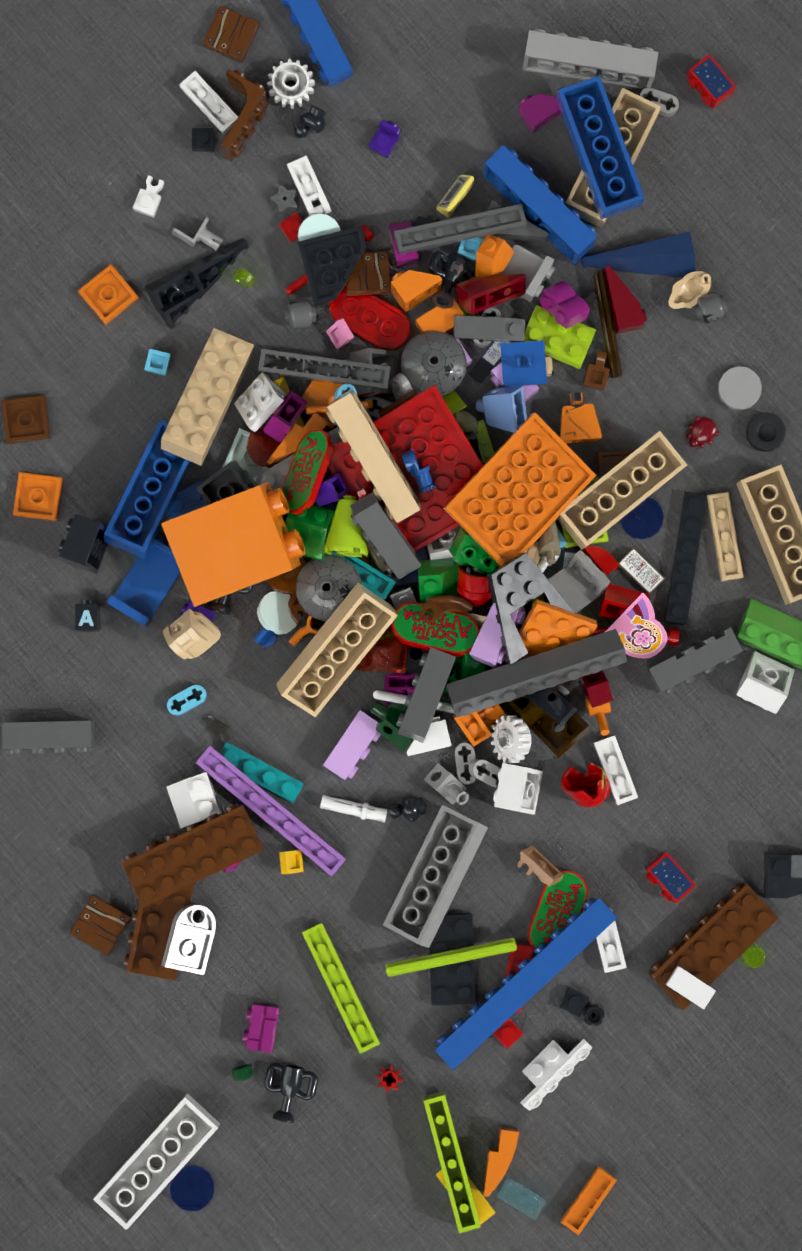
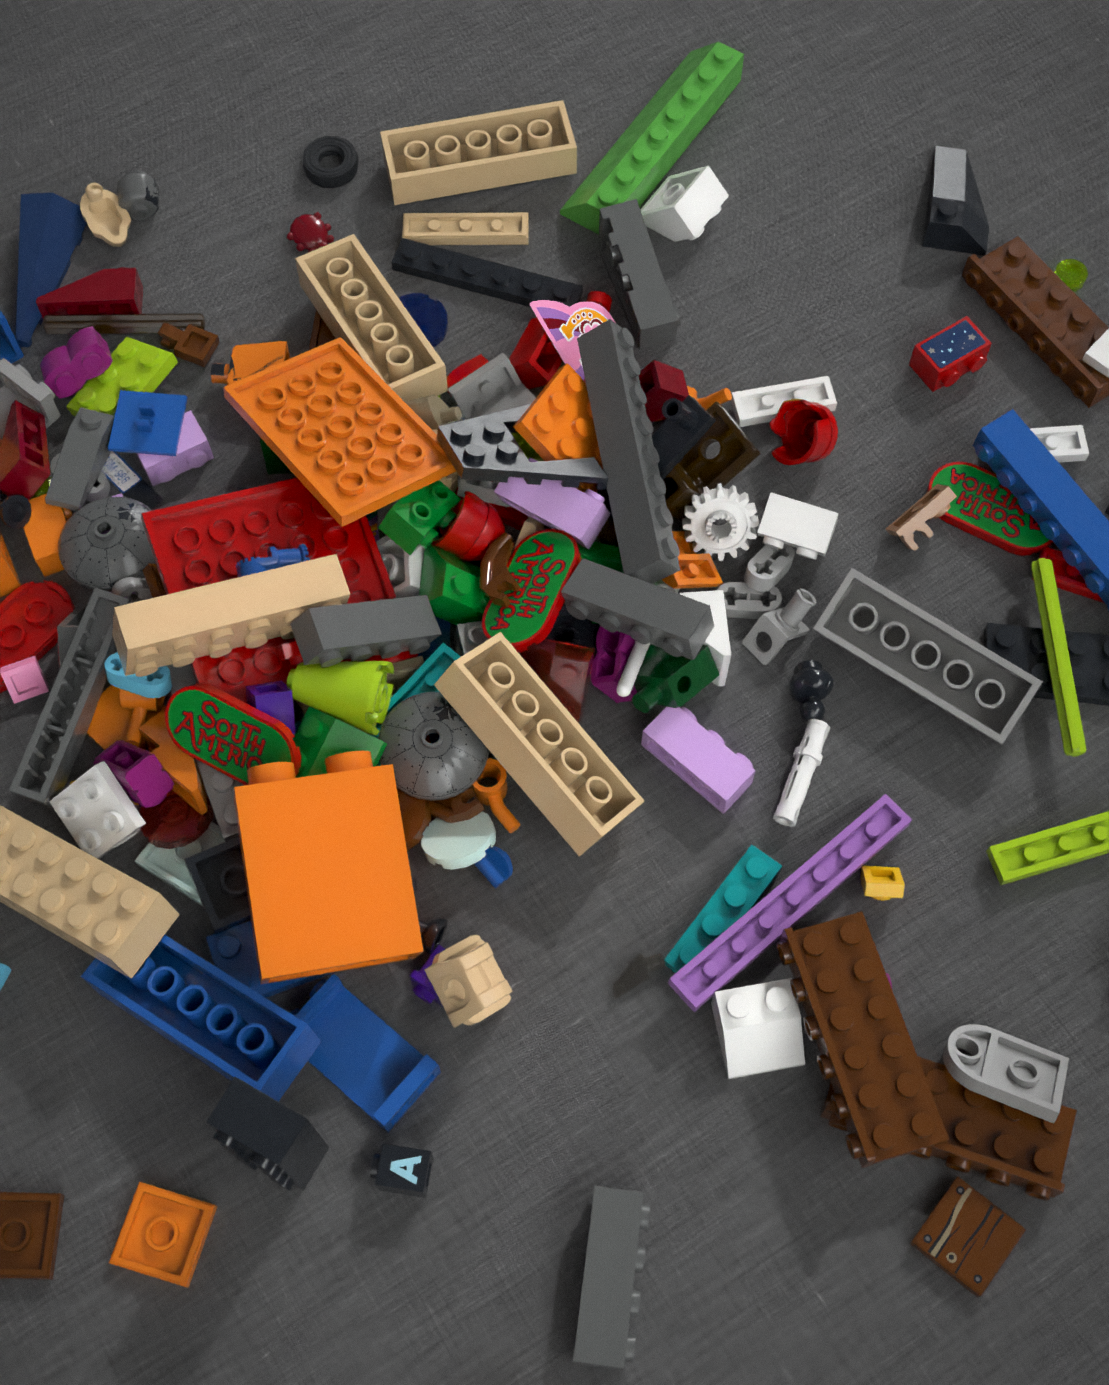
camera: 75 degrees left, 20 degrees down
(183, 695) = (590, 1015): medium azure beam -> none
(504, 408) = (207, 459): medium blue torso -> none
(641, 571) = (494, 332): tile -> none
(739, 388) = (261, 183): light grey tile -> none

